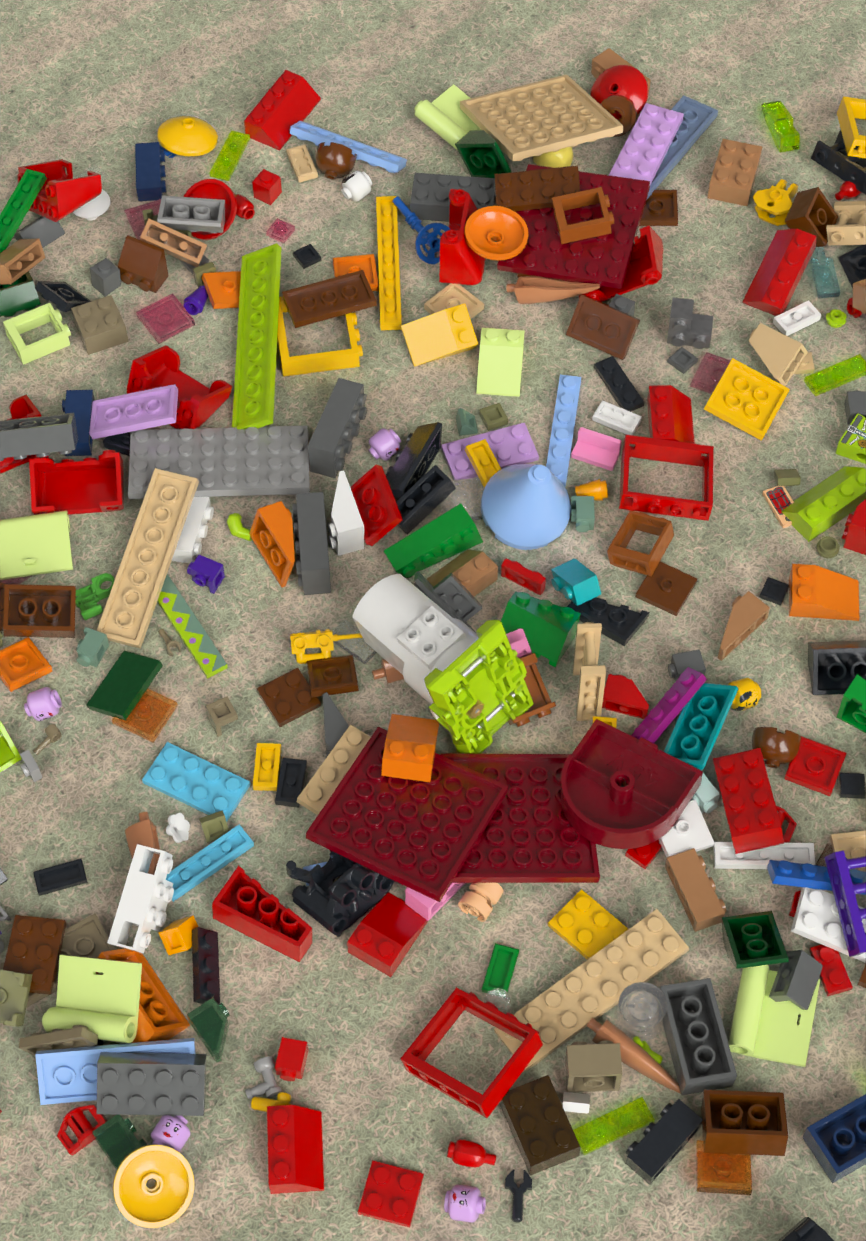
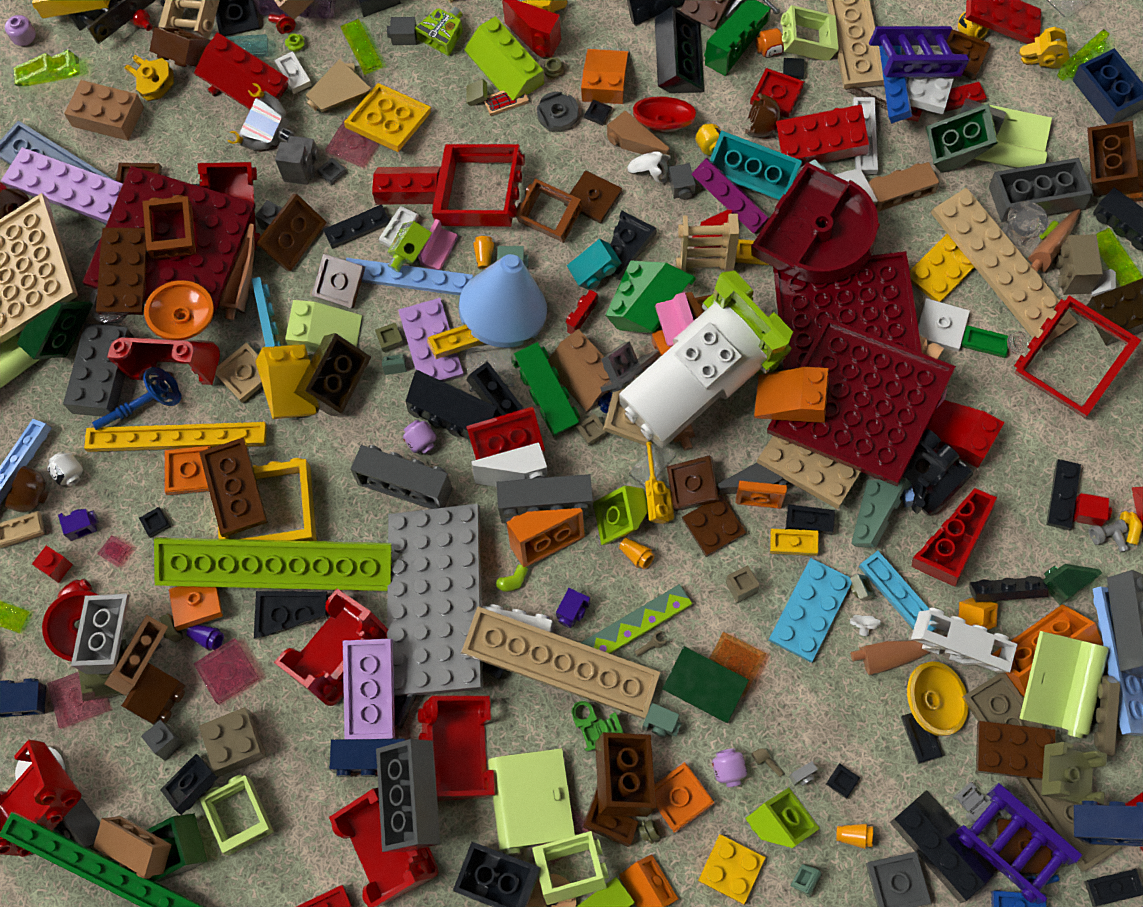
camera: 85 degrees left, 10 degrees up
(22, 804) = (842, 781): none -> black tile
(74, 888) = (937, 699): none -> yellow dish
(217, 354) = (286, 609): none -> black wing
(258, 630) = (637, 553): none -> light orange cone
(292, 838) = (875, 509): none -> sand green wing
(301, 613) = (620, 513): none -> lime slope
(304, 200) = (78, 523): none -> dark purple brick
(314, 729) = (760, 494): none -> orange plate
(319, 1036) = (1063, 494): none -> black plate
(445, 367) = (332, 374): none -> dark brown brick
(512, 316) = (265, 312): none -> medium azure plate
(520, 925) = (943, 324): none -> white plate
(551, 369) = (338, 280): none -> plate
(590, 418) = (413, 238): none -> lime torso
(707, 630) = (649, 162): none -> white piece
(727, 296) = (264, 124): none -> torso
(770, 563) = (561, 121): none -> dark grey plate
(770, 646) = (664, 113): none -> red dish
(821, 99) = (20, 30): none -> lavender head

